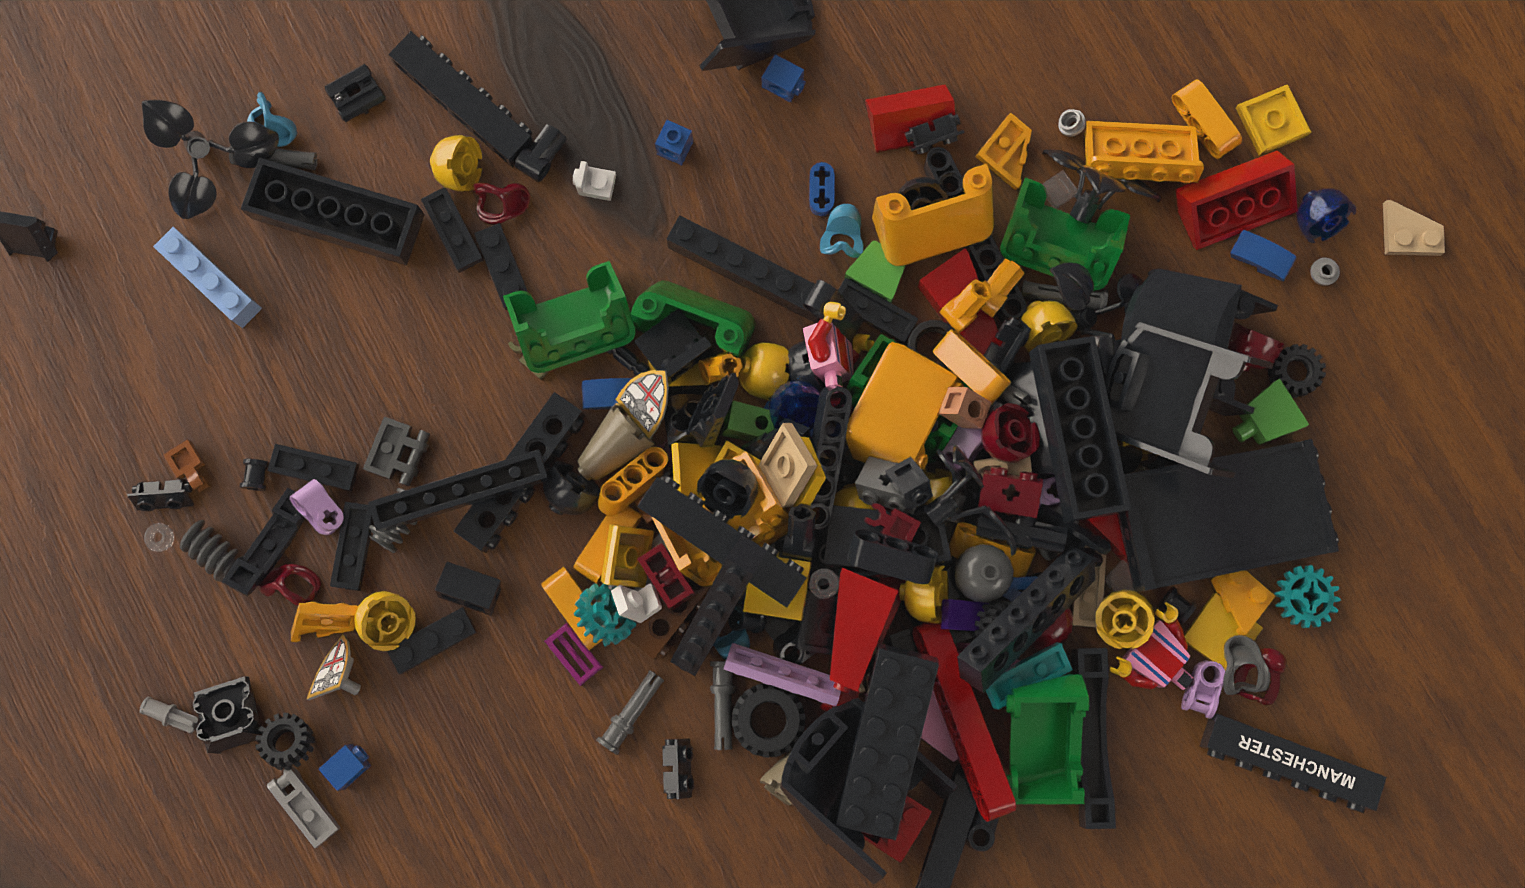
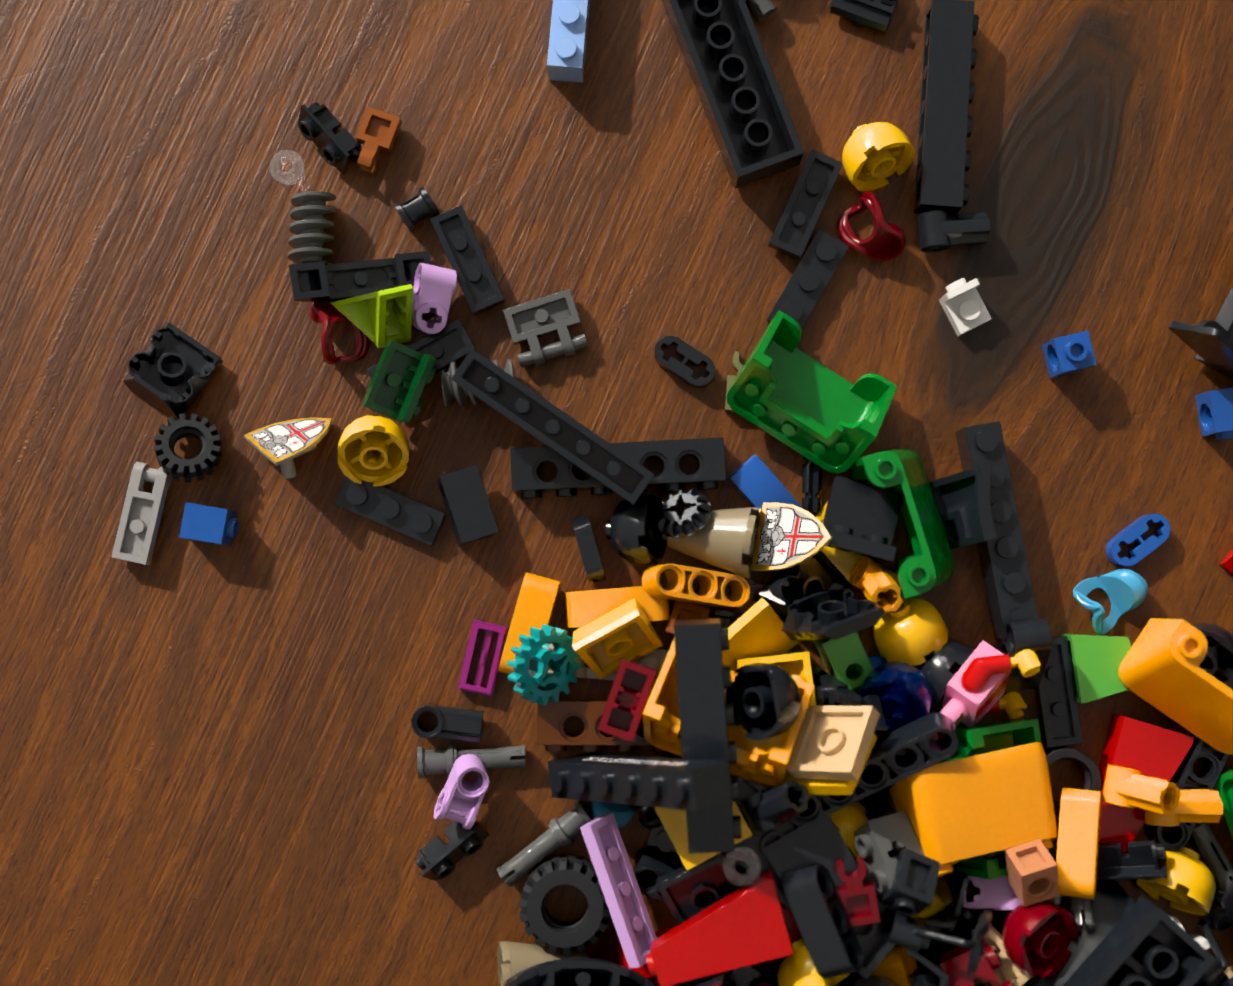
camera: 50 degrees right, 5 degrees up
(169, 715) = (130, 316): light grey axle -> none
(302, 547) = (381, 314): none -> lime slope
(323, 619) = (330, 390): light orange wing -> none
(354, 569) = (399, 382): none -> dark green bracket
(487, 374) = (689, 355): none -> black beam
(558, 532) = (588, 549): none -> black beam
(588, 448) = (694, 517): none -> black gear
(598, 705) = (452, 723): none -> black piece
(636, 605) = (578, 689): white bracket -> none
(650, 735) = (462, 798): none -> lavender piece
(715, 276) = (965, 506): none -> black plate

